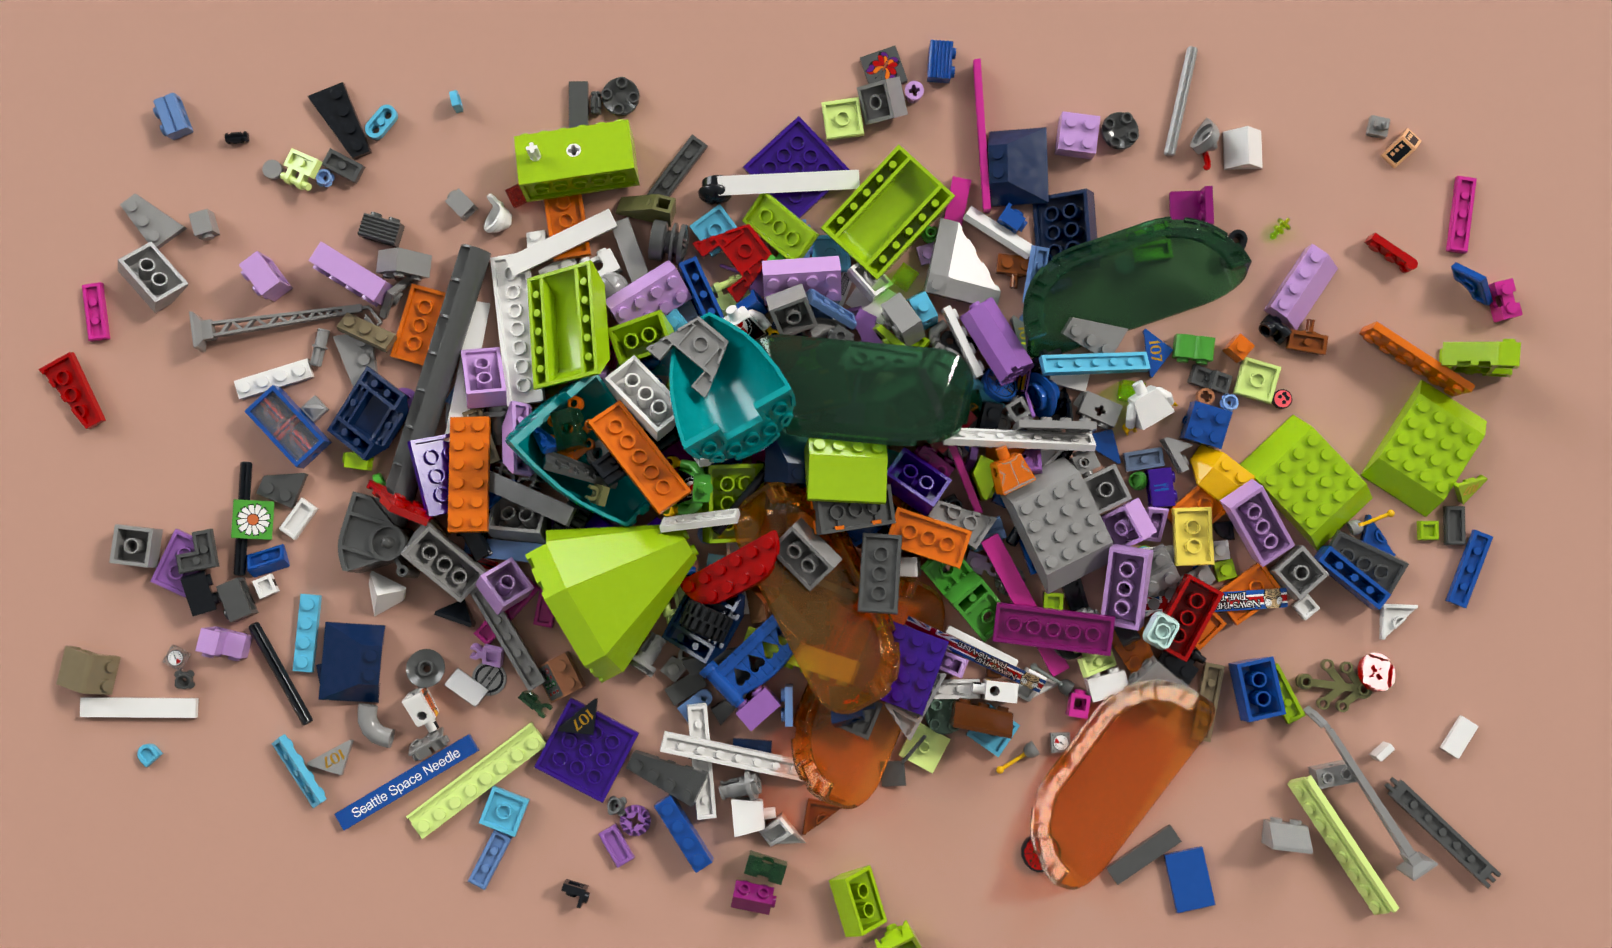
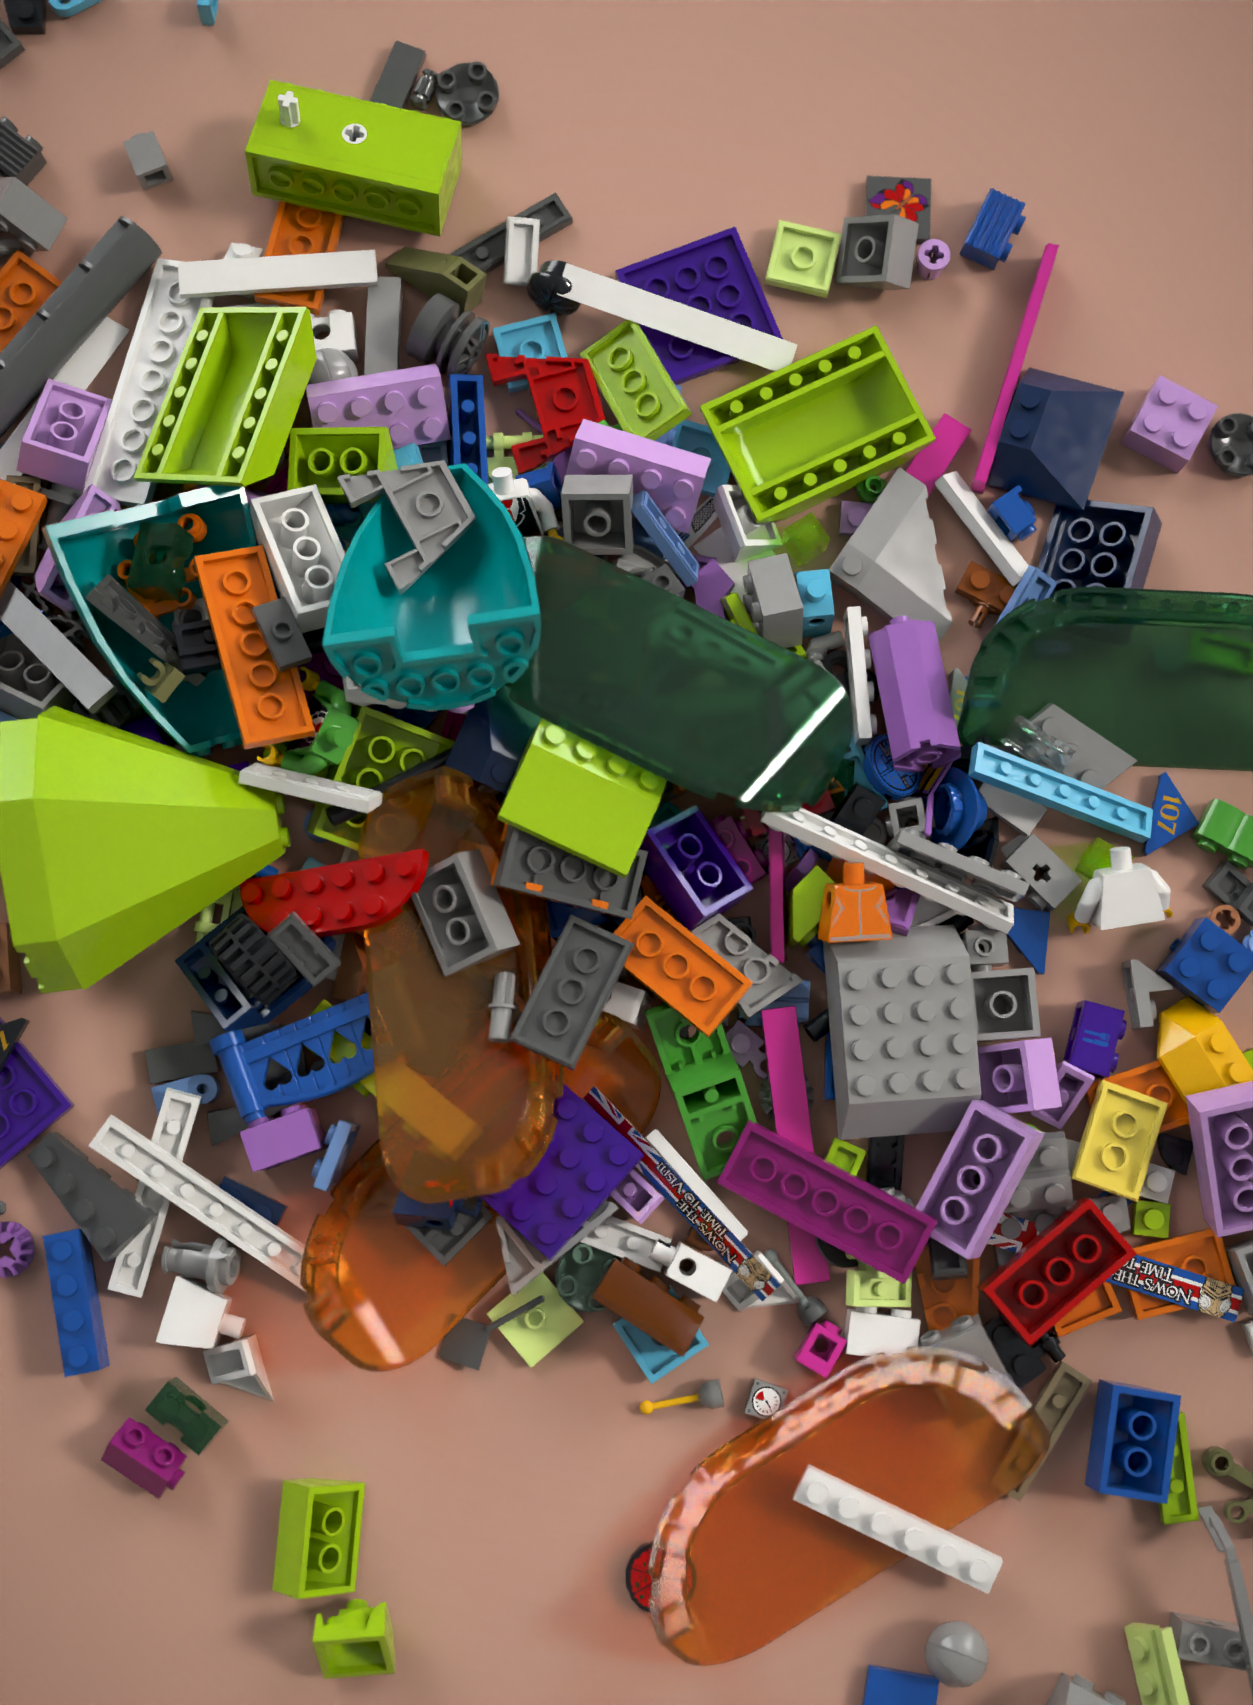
camera: 15 degrees right, 5 degrees down
(498, 218) = (200, 202): white hat -> none
(516, 196) = (238, 183): clear red plate -> none
(545, 441) = (113, 562): blue tile -> none
(648, 654) = (141, 981): light grey piece -> none
(652, 445) = (281, 634): none -> dark grey plate
(674, 667) = (176, 1021): light grey plate -> none
(687, 175) = (520, 250): none -> white tile
(730, 606) = (303, 949): none -> dark grey plate
(816, 813) = (310, 1358): dark orange tile -> none
(846, 595) = (502, 1007): none -> light grey axle
(1072, 343) = (1037, 745): none -> clear plate
(1138, 480) = (1061, 1014): bright green plate -> none
(1143, 459) = (1083, 982): sand blue plate -> none
(1143, 854) = (833, 1651): dark grey tile -> none
(1153, 780) = (898, 1528): none -> white plate
(1160, 630) = (1005, 1274): light aqua piece -> none
(1206, 831) = (956, 1654): none -> light grey piece

